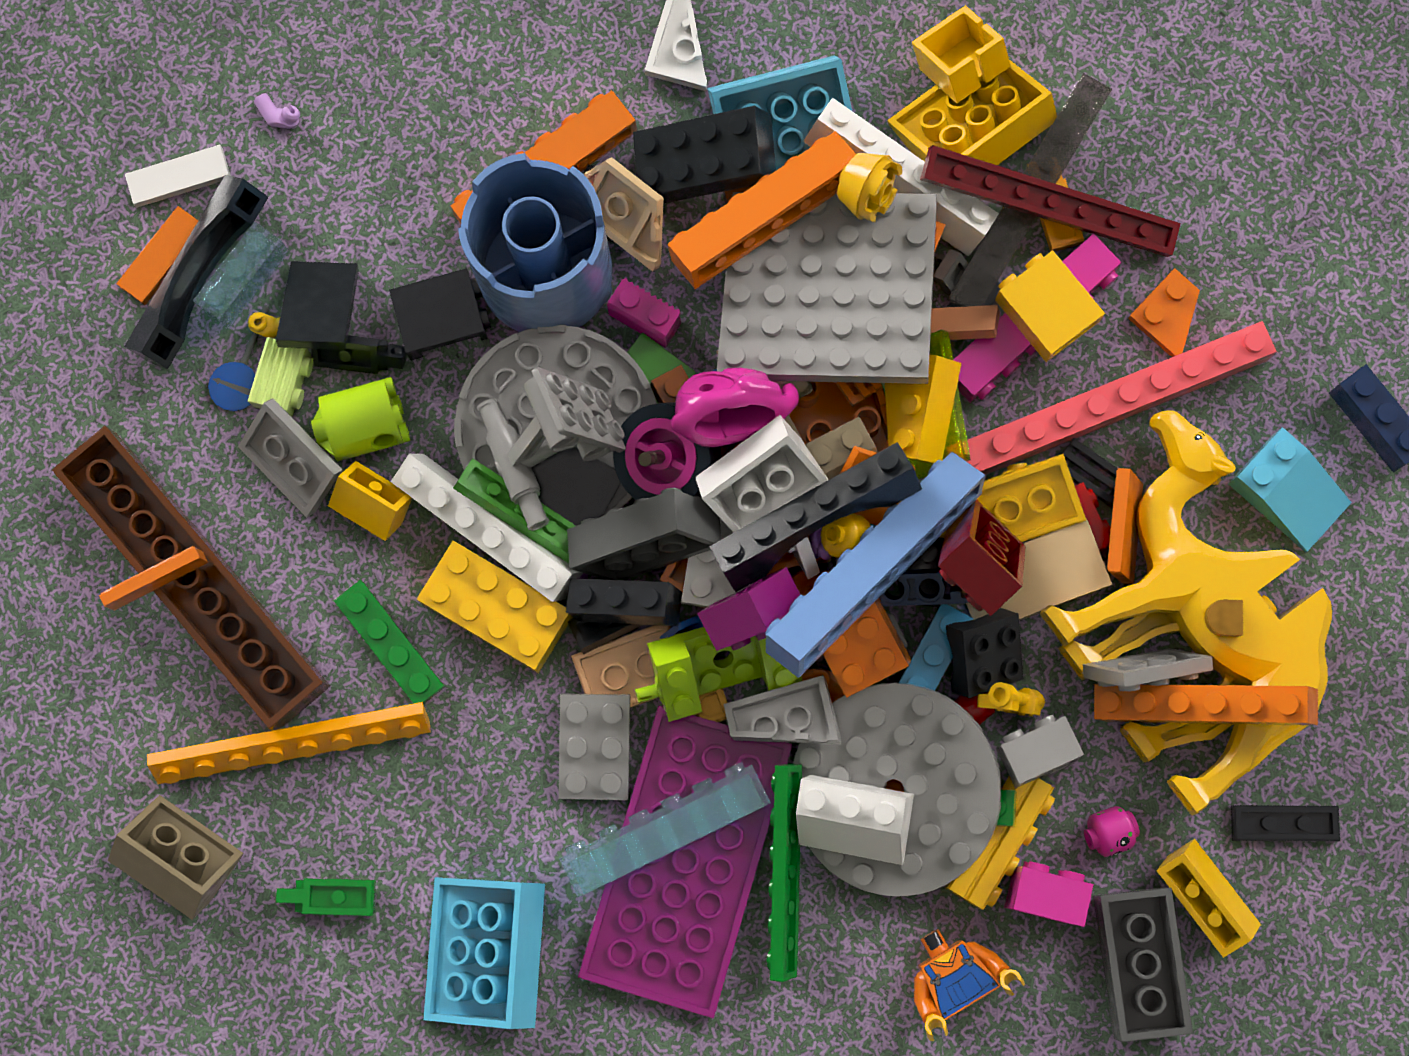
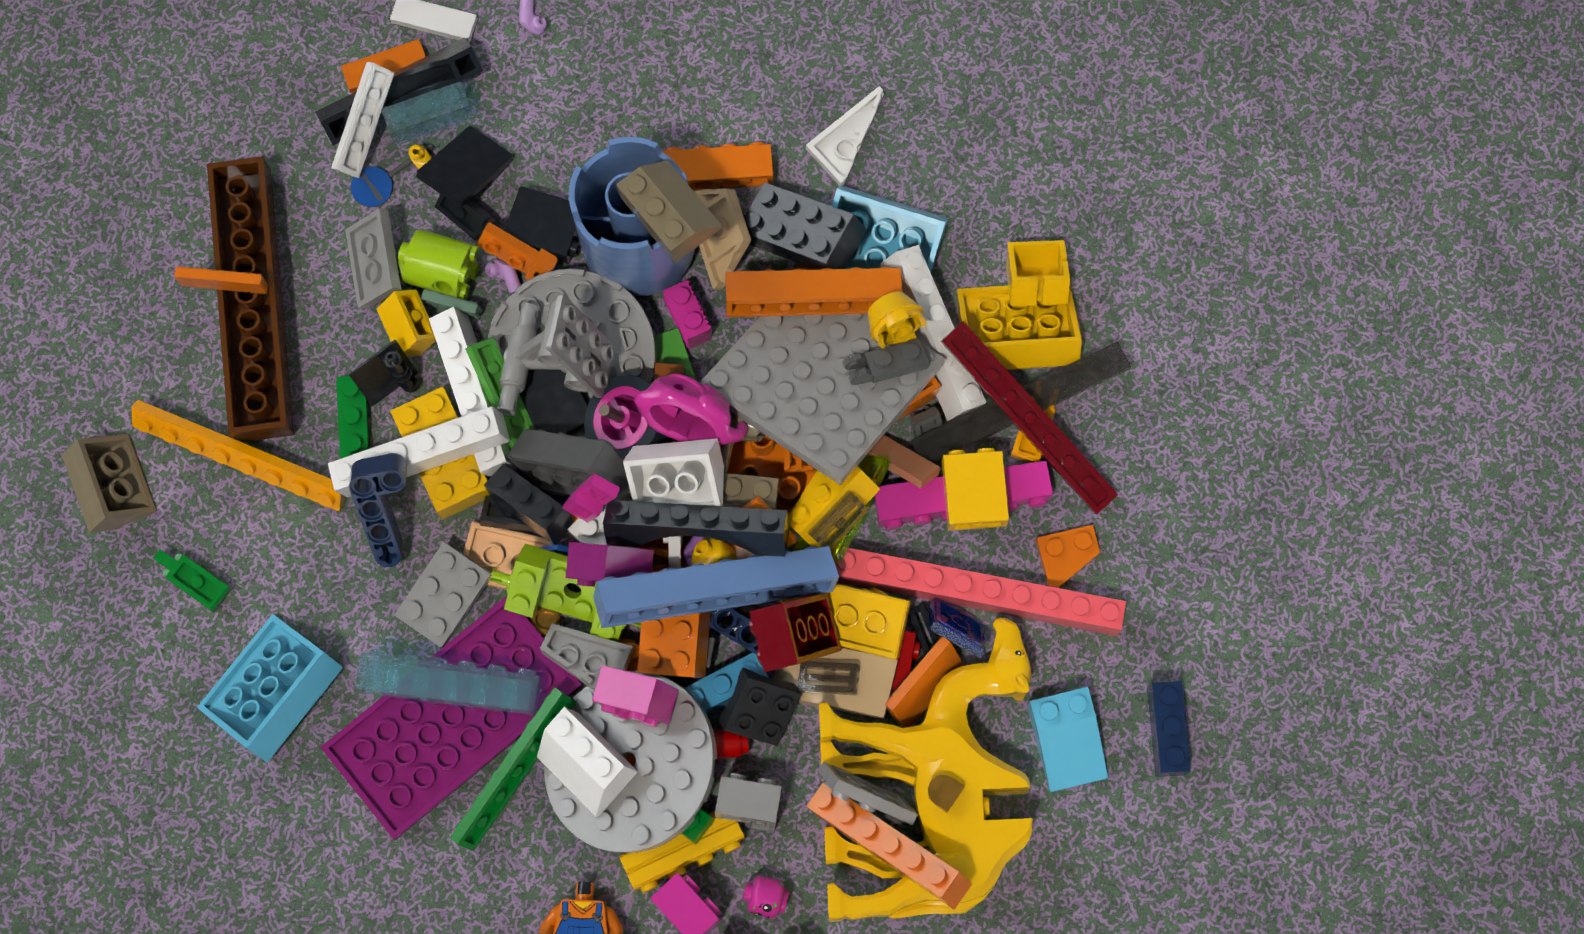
camera: 30 degrees right, 5 degrees down
(181, 323) = (362, 119): none -> white tile
(281, 376) = (406, 200): yellowish green brick -> none
(383, 564) = (385, 373): none -> black hinge
(399, 452) = (446, 302): none -> sand green tile
(430, 386) = (503, 271): none -> lavender arm
(432, 359) = (515, 252): none -> orange plate
(457, 685) = (374, 506): none -> dark blue beam
(479, 622) = (432, 446): none -> white brick
(584, 213) = (668, 208): none -> dark tan slope
(691, 555) = (590, 498): none -> dark pink slope
(870, 720) = (634, 696): none -> brick
(888, 232) = (887, 362): none -> dark grey hinge
(943, 420) = (835, 519): none -> clear smoke tile
(1007, 699) = (750, 747): yellow piece -> none
(1058, 567) = (852, 679): none -> clear smoke tile
(1120, 450) = (957, 627): none -> clear blue tile

